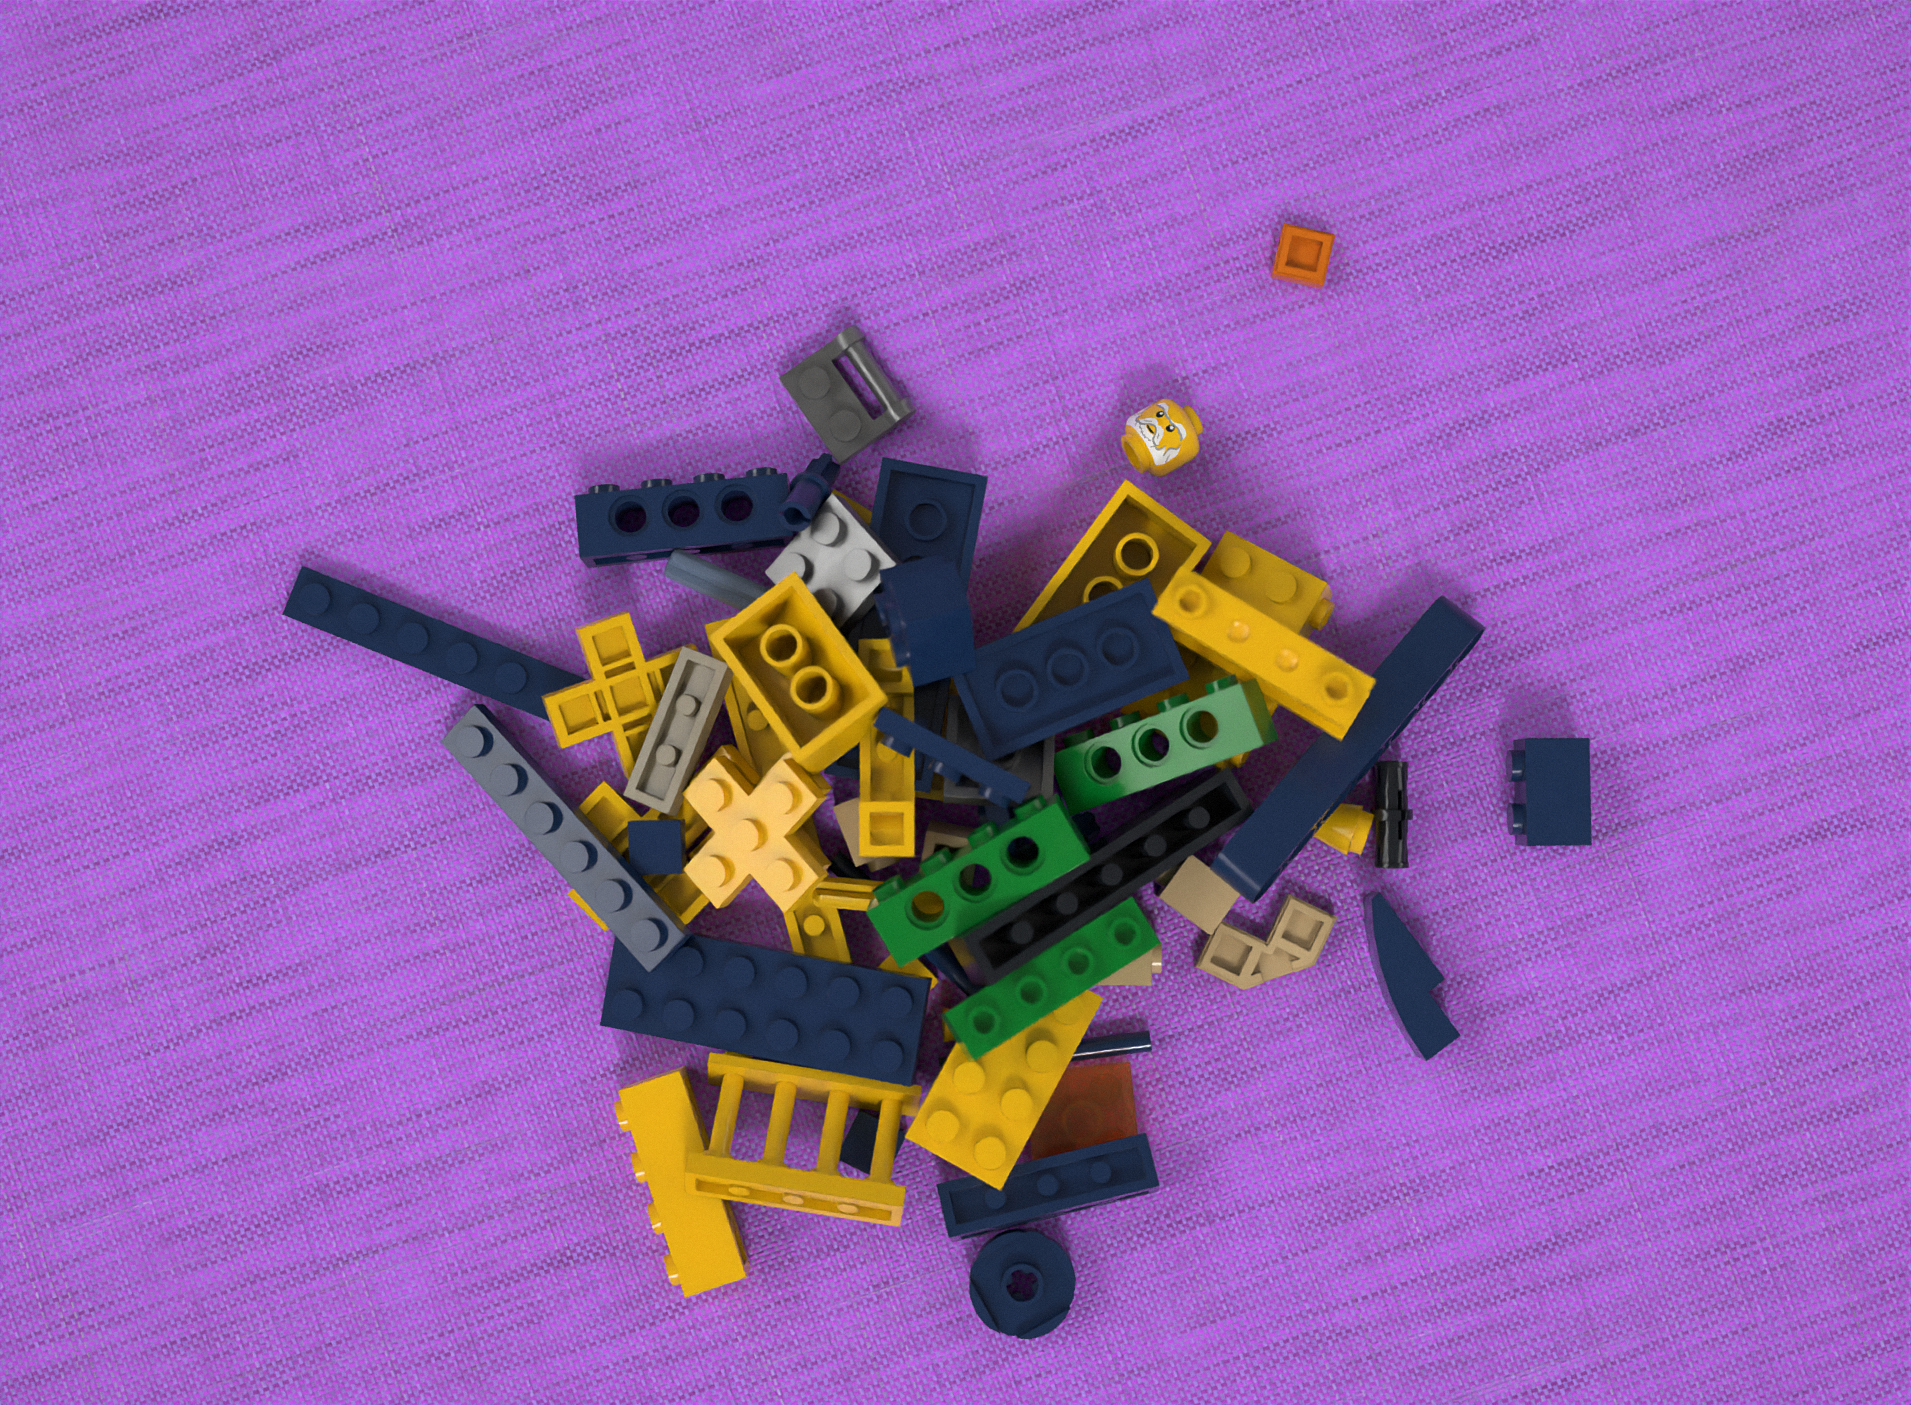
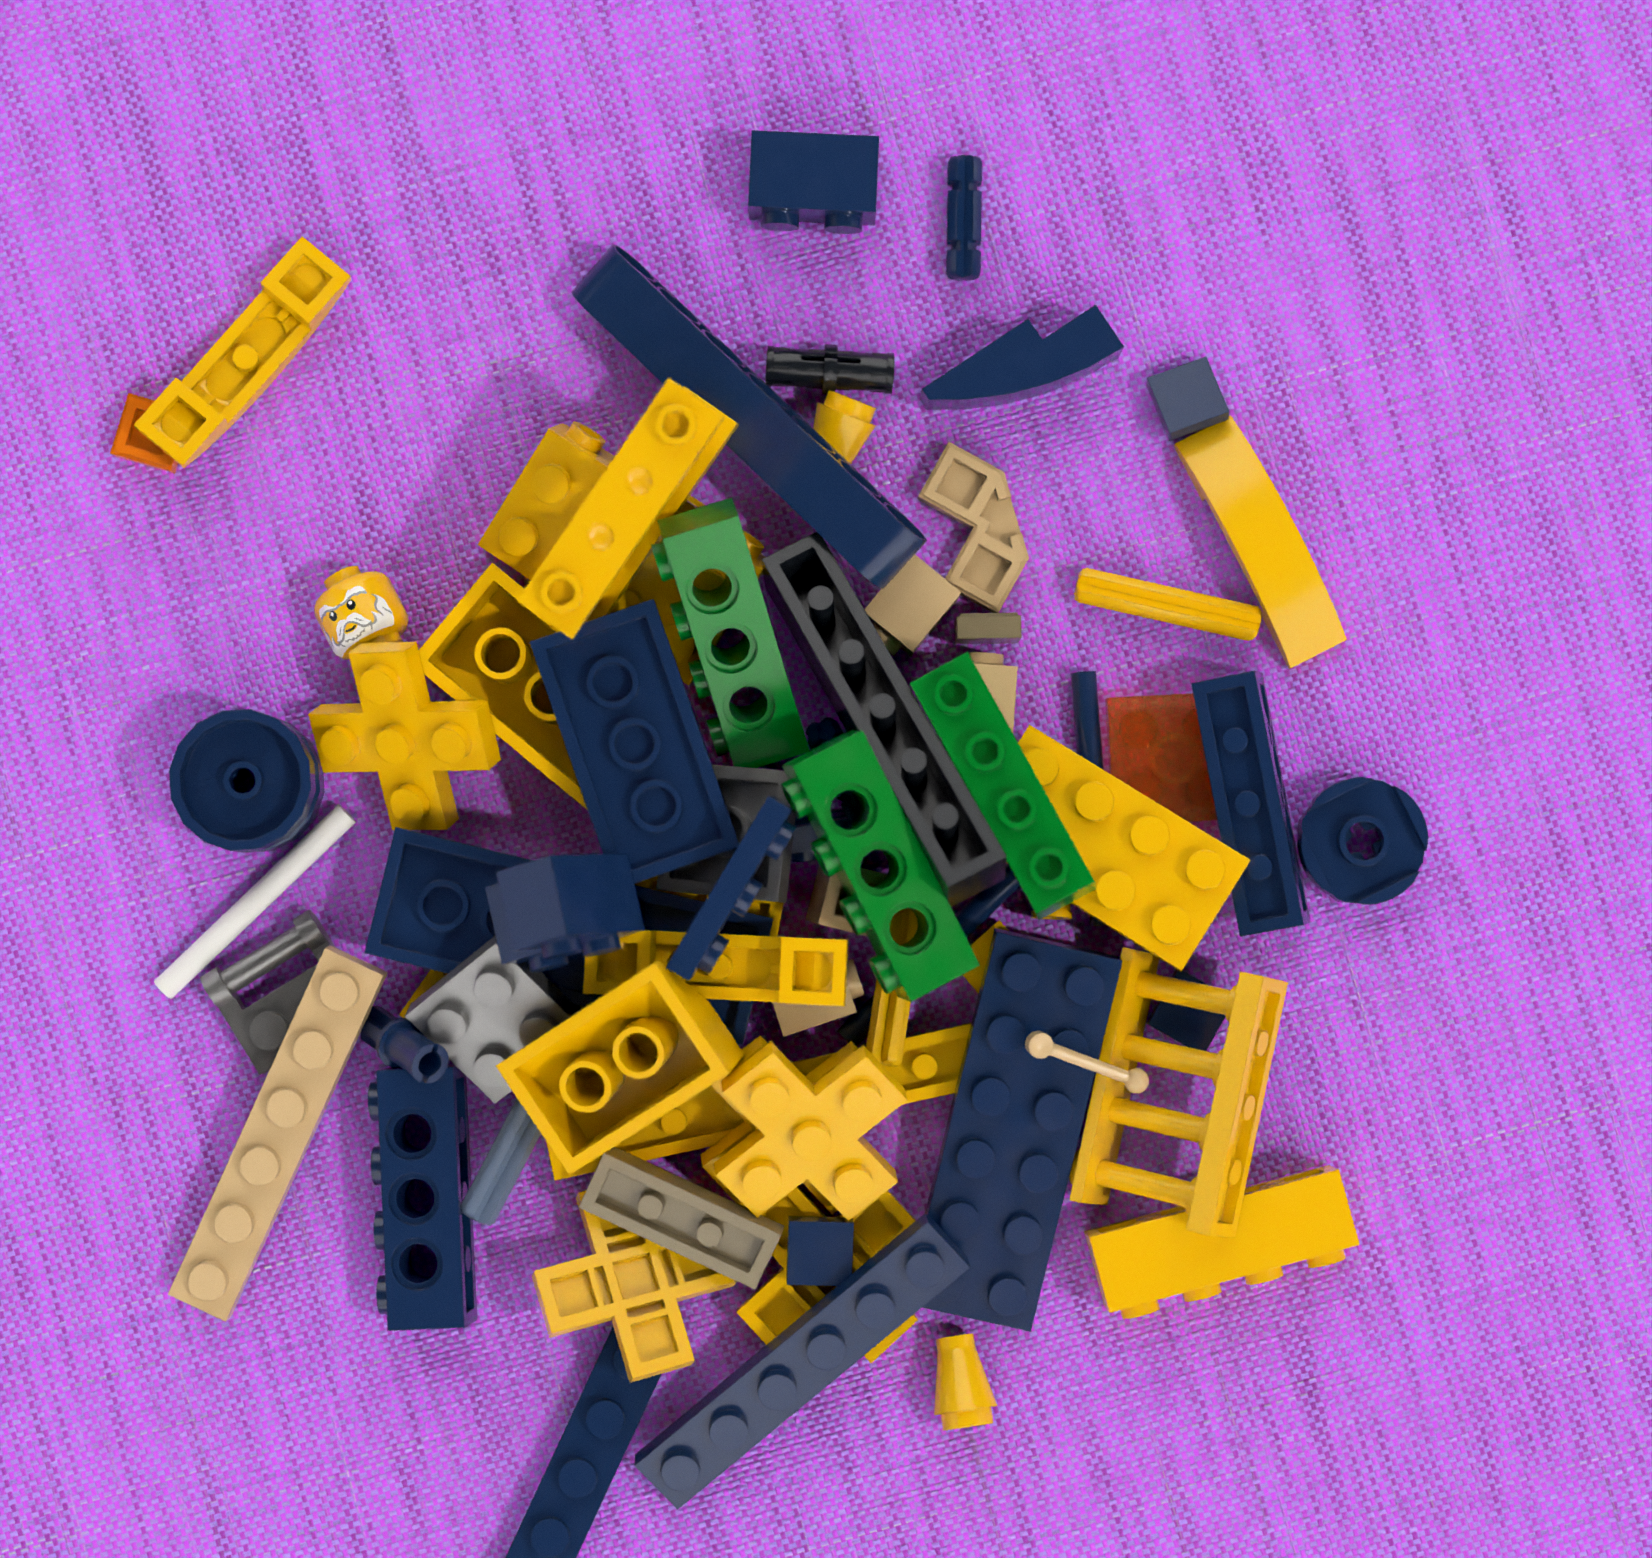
camera: 90 degrees left, 0 degrees up
(553, 970) = (962, 1386): none -> yellow cone
(732, 396) = (277, 1133): none -> tan plate
(835, 1023) = (1041, 1045): none -> tan hinge
(920, 365) = (254, 901): none -> white bar
(1035, 325) = (215, 760): none -> dark blue wheel
(1064, 479) = (404, 736): none -> yellow plate
(1182, 958) = (987, 628): none -> dark tan tile
(1211, 1109) = (1167, 604): none -> yellow axle
(1270, 1186) = (1263, 540): none -> yellow slope
(1371, 330) = (247, 356): none -> yellow slope
(1386, 1117) = (1187, 398): none -> dark blue tile
(1526, 920) = (964, 218): none -> dark blue axle

